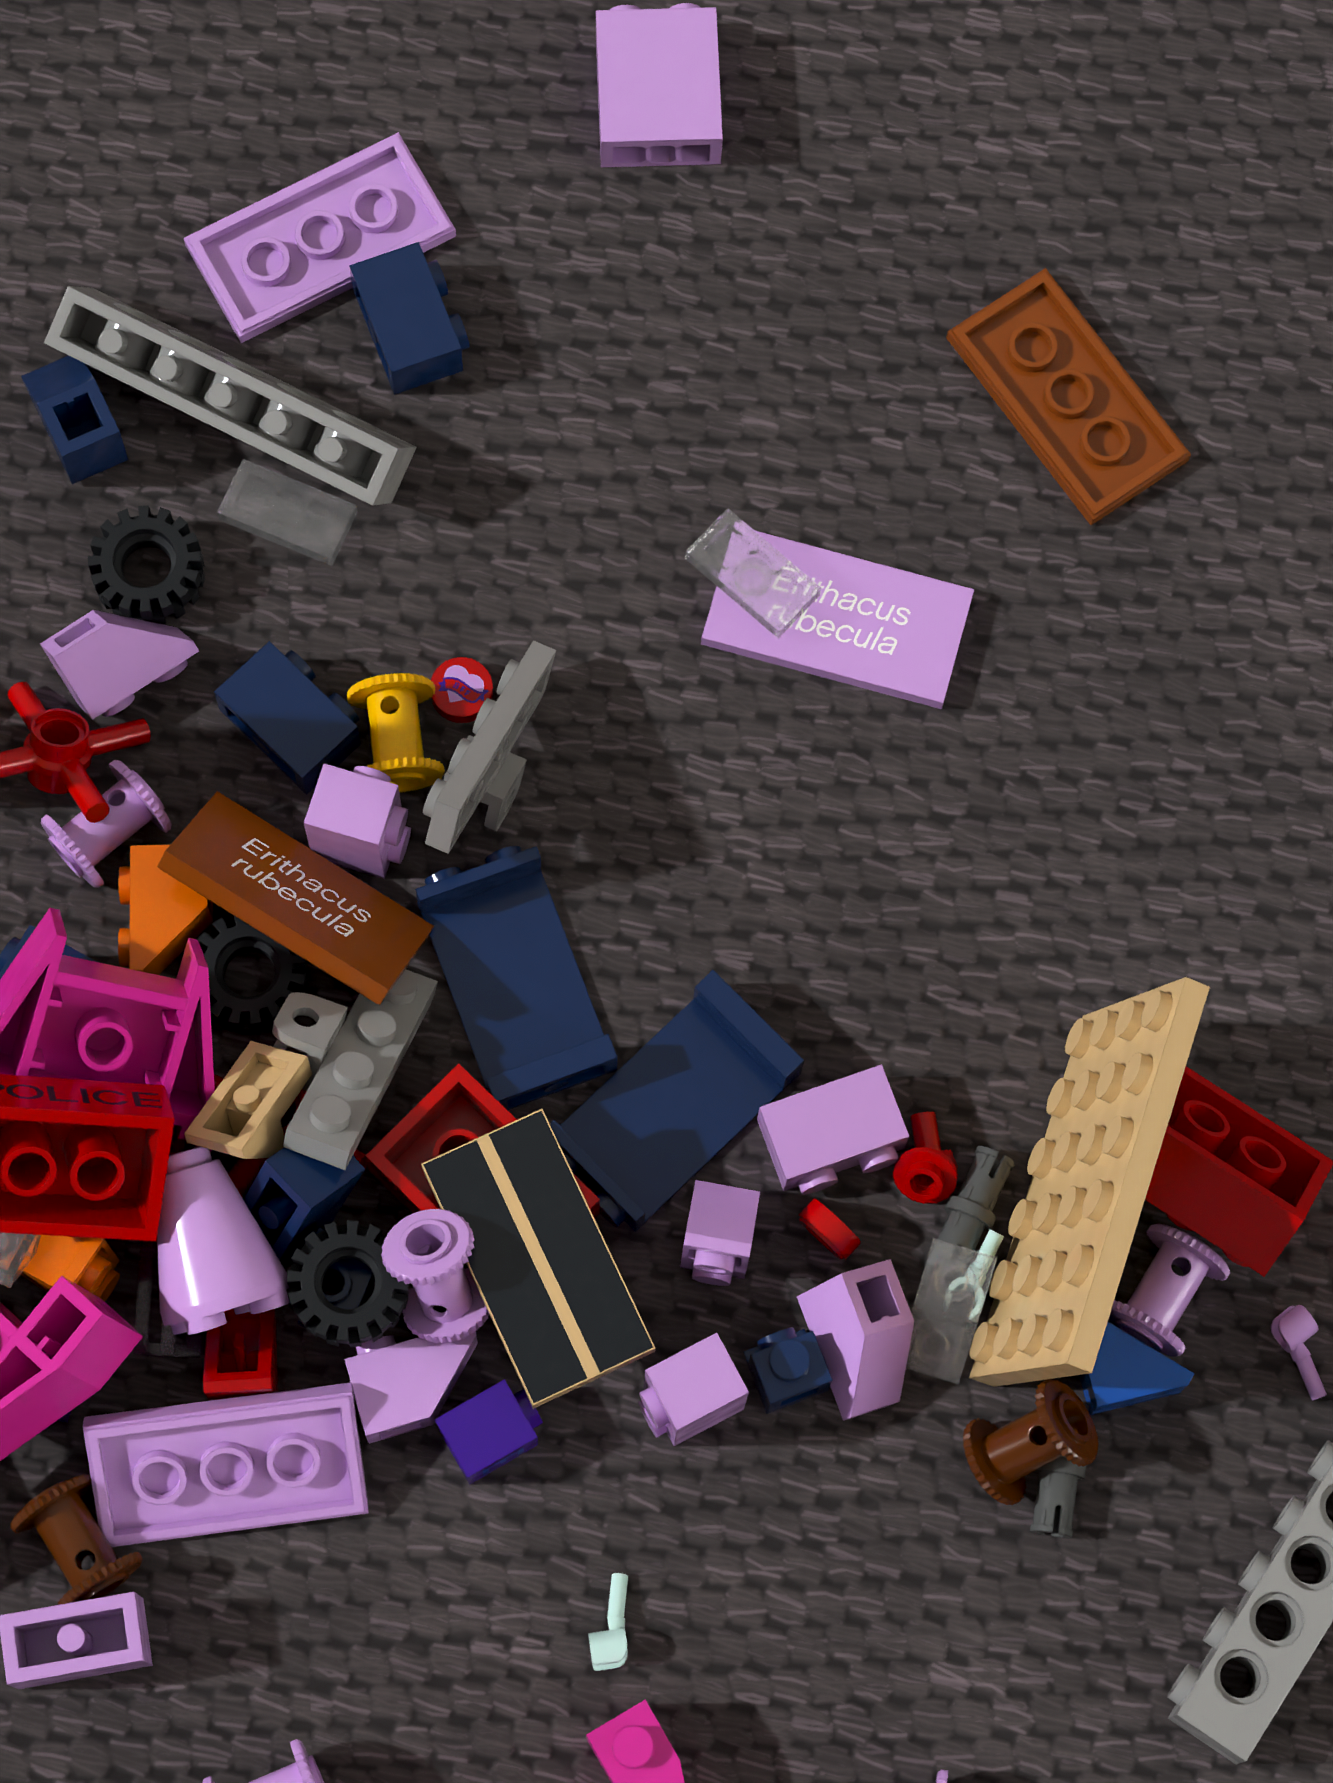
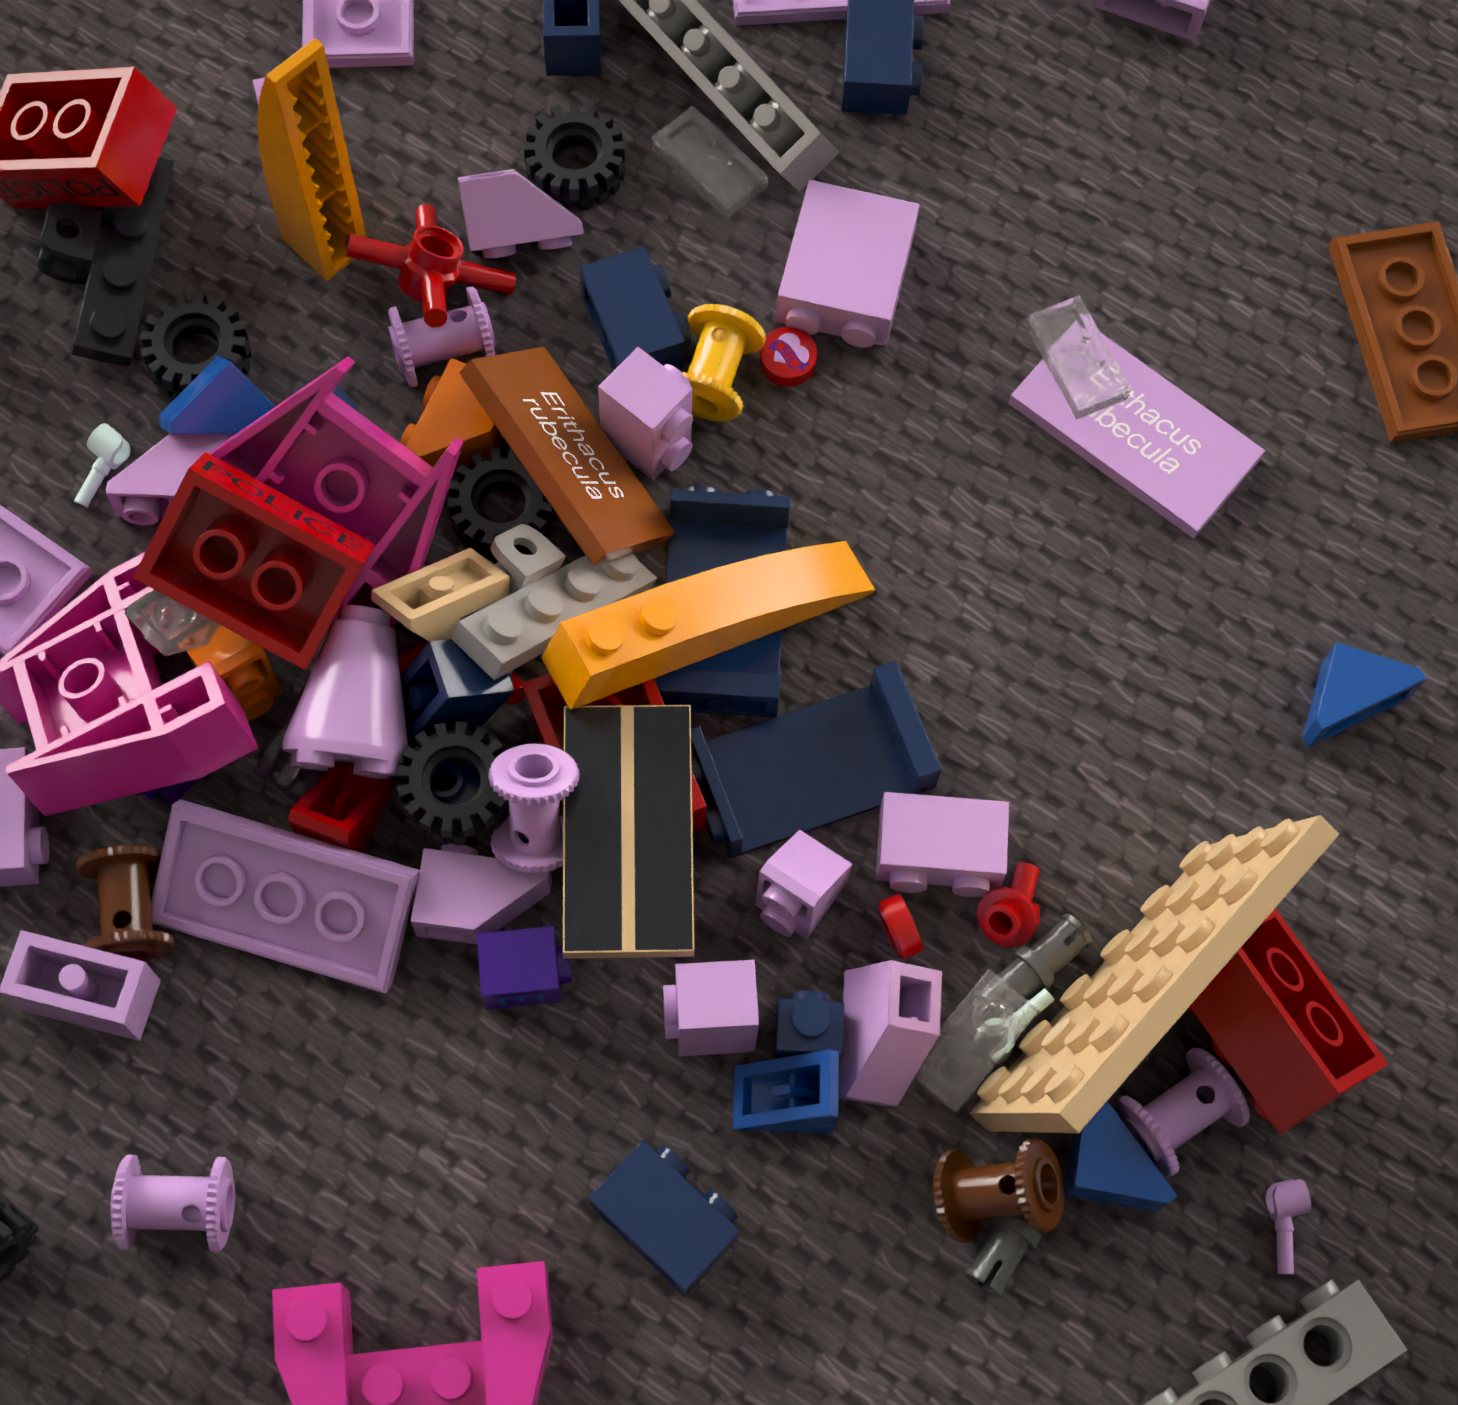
camera: 25 degrees right, 5 degrees down
(479, 568) = (846, 264): none -> lavender brick
(483, 764) = (776, 407): light grey plate -> none
(511, 1012) = (698, 618): none -> light orange slope
(610, 1646) = (540, 1205): light aqua hand -> none
(734, 1604) = (666, 1216): none -> dark blue brick
(794, 1438) = (787, 1094): none -> blue slope
(1156, 801) = (1355, 688): none -> blue slope

